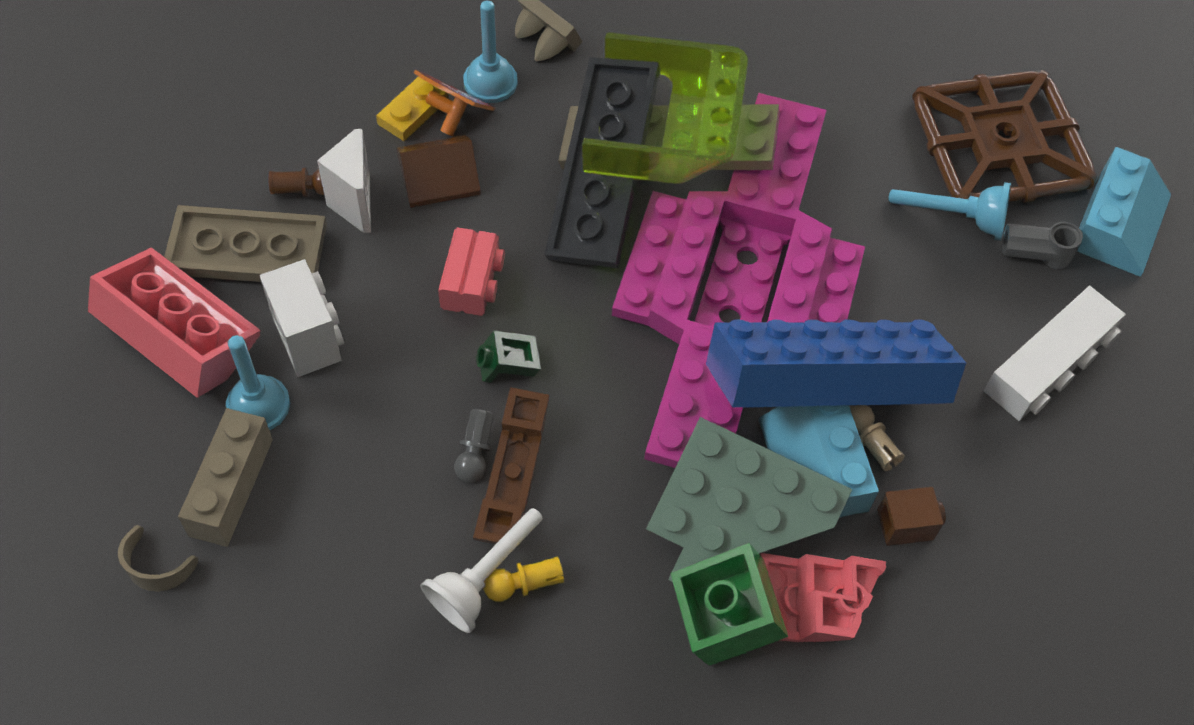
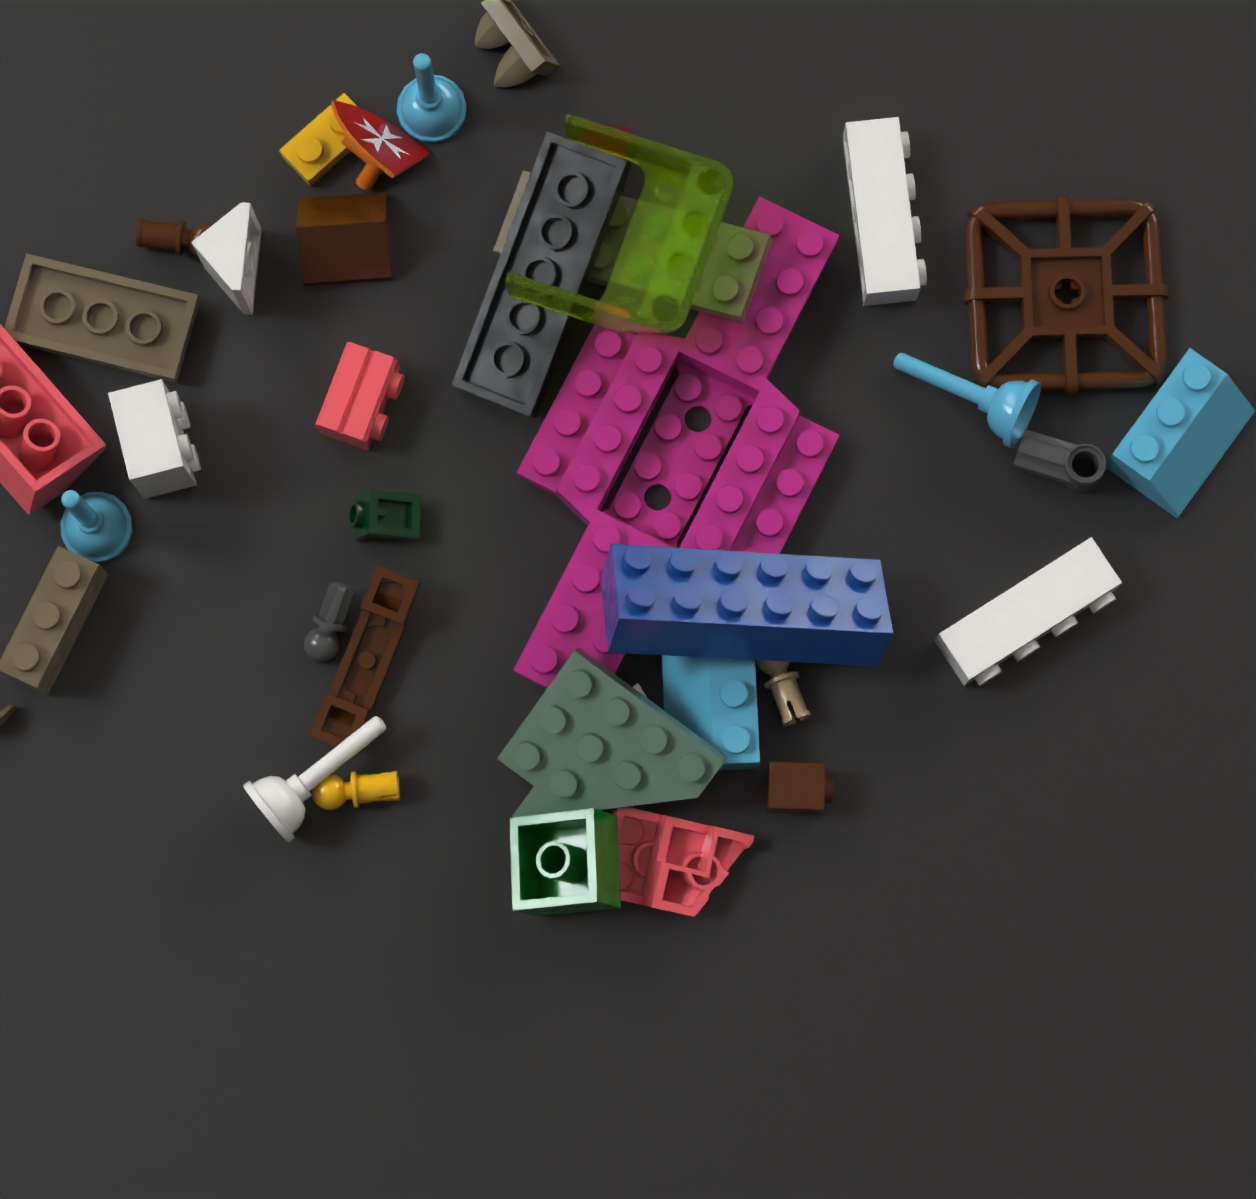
camera: 15 degrees right, 20 degrees up
(851, 99) = (882, 211): none -> white brick

